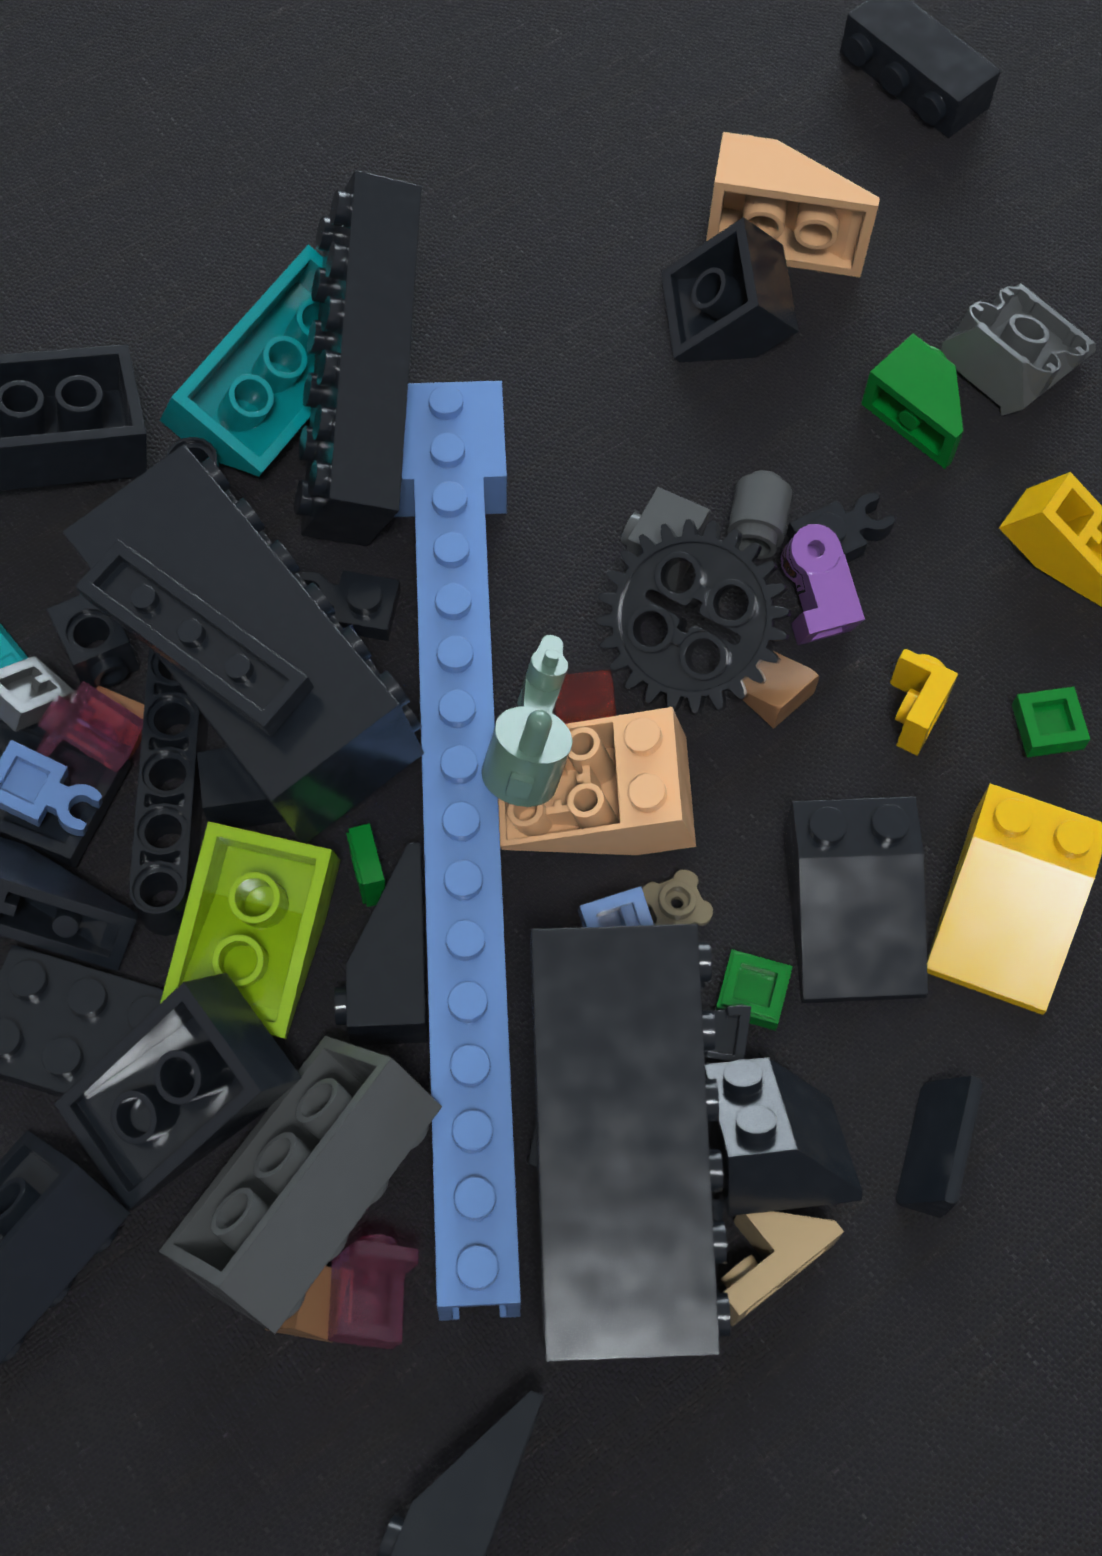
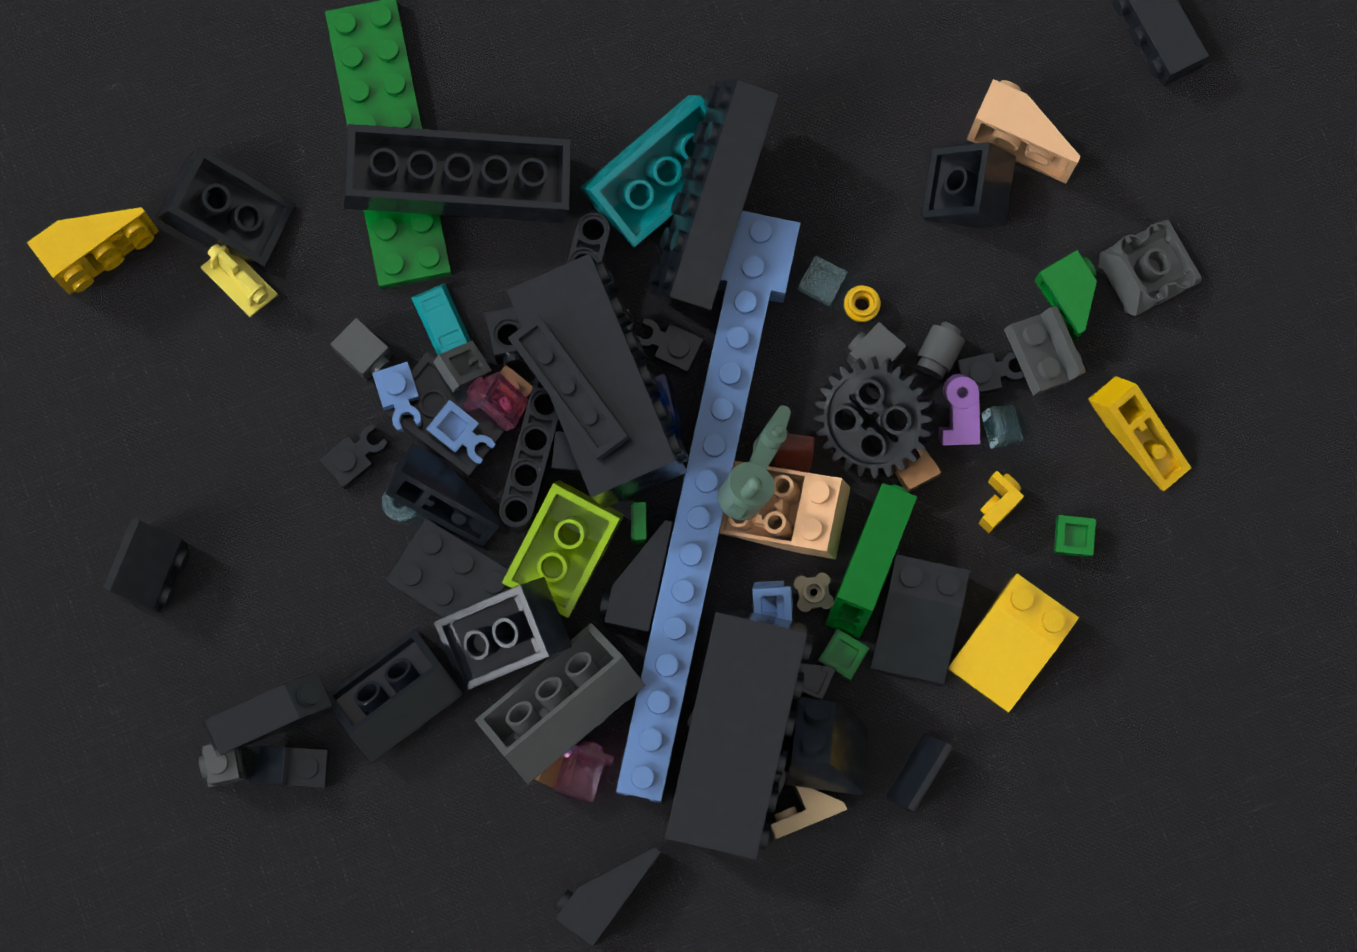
camera: 15 degrees right, 15 degrees up
(556, 463) = (822, 280): none -> clear light blue plate
(624, 469) = (867, 294): none -> yellow plate
(754, 833) = (871, 560): none -> green slope
(884, 599) = (1001, 426): none -> clear light blue slope
(915, 479) = (1045, 351): none -> dark grey bracket

